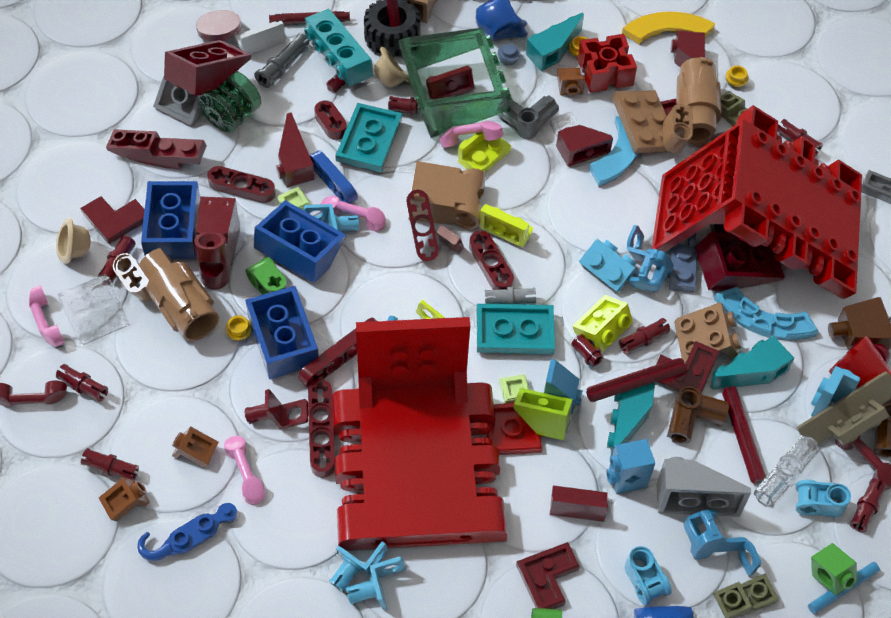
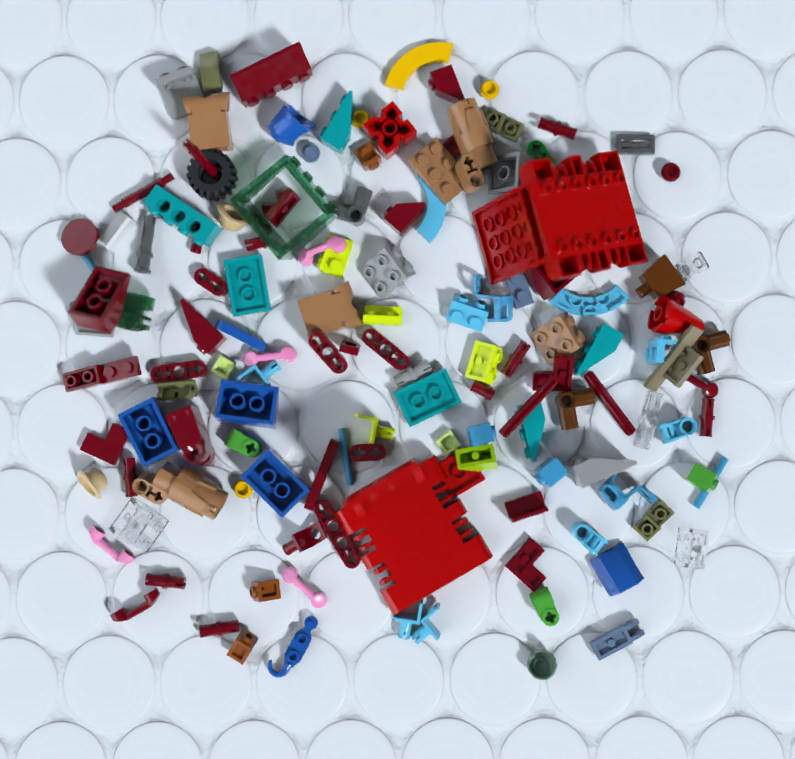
camera: 20 degrees left, 30 degrees up
(243, 198) = (182, 389): none -> olive hinge
(534, 184) = (387, 270): none -> light grey bracket

